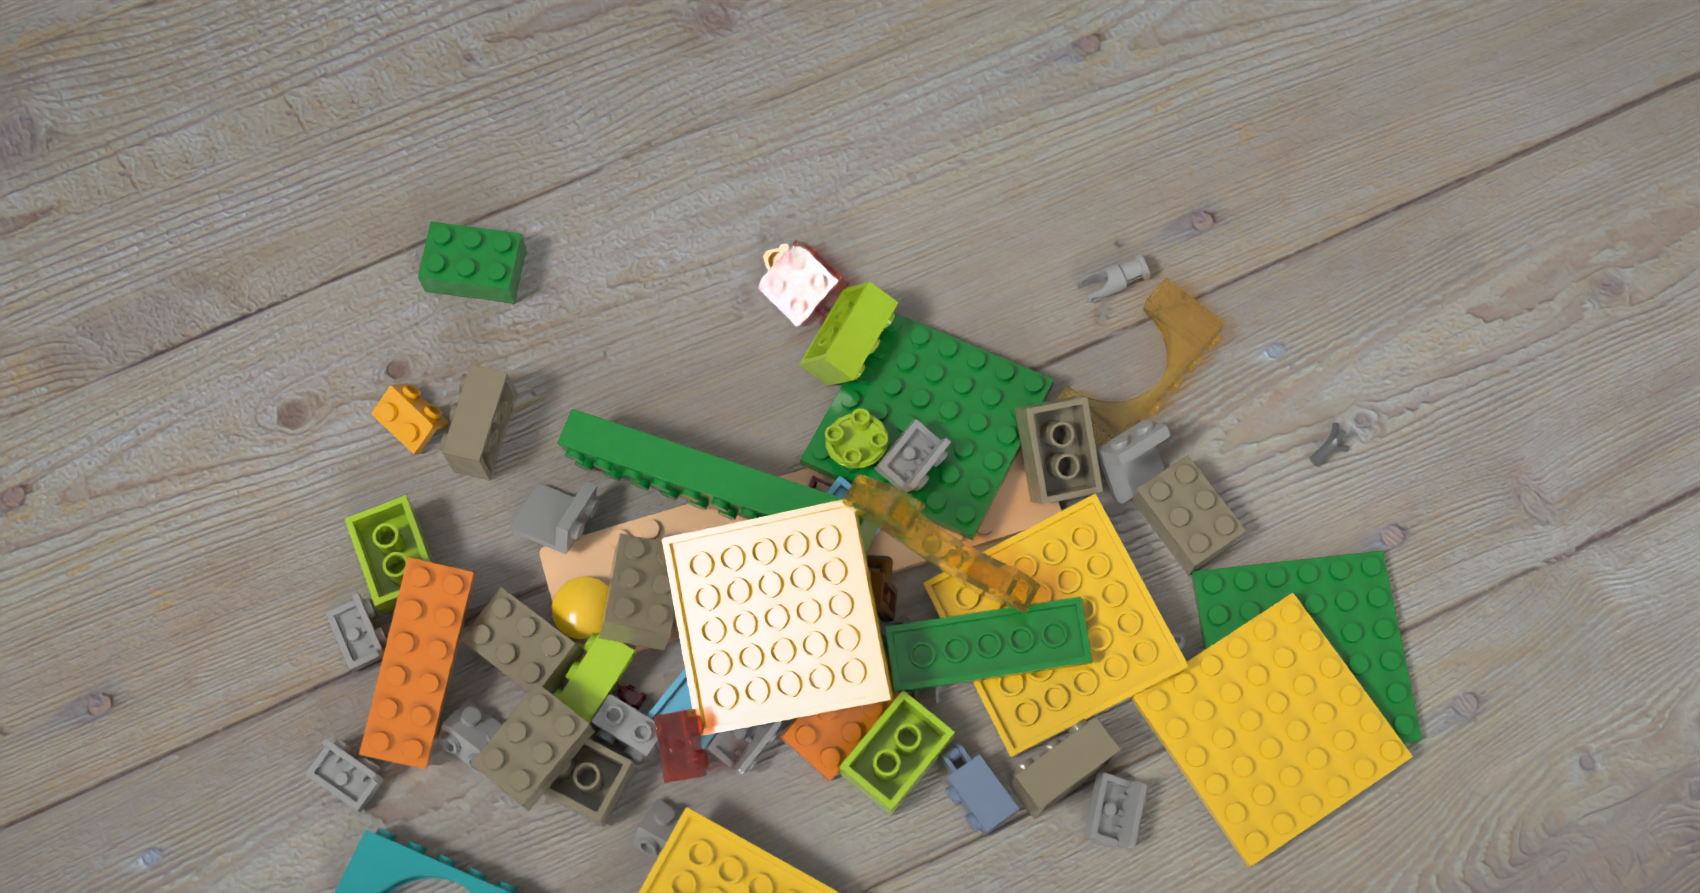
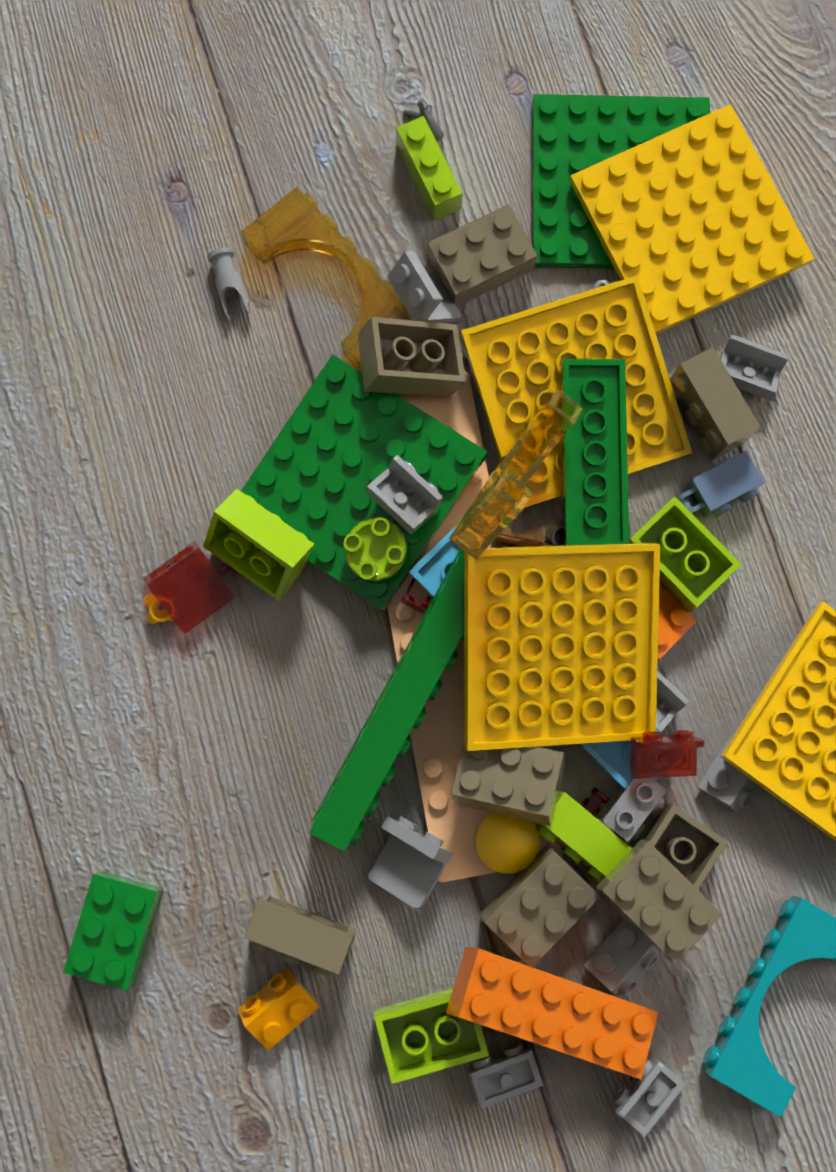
camera: 90 degrees left, 10 degrees up
(1274, 451) = (428, 168): none -> lime brick

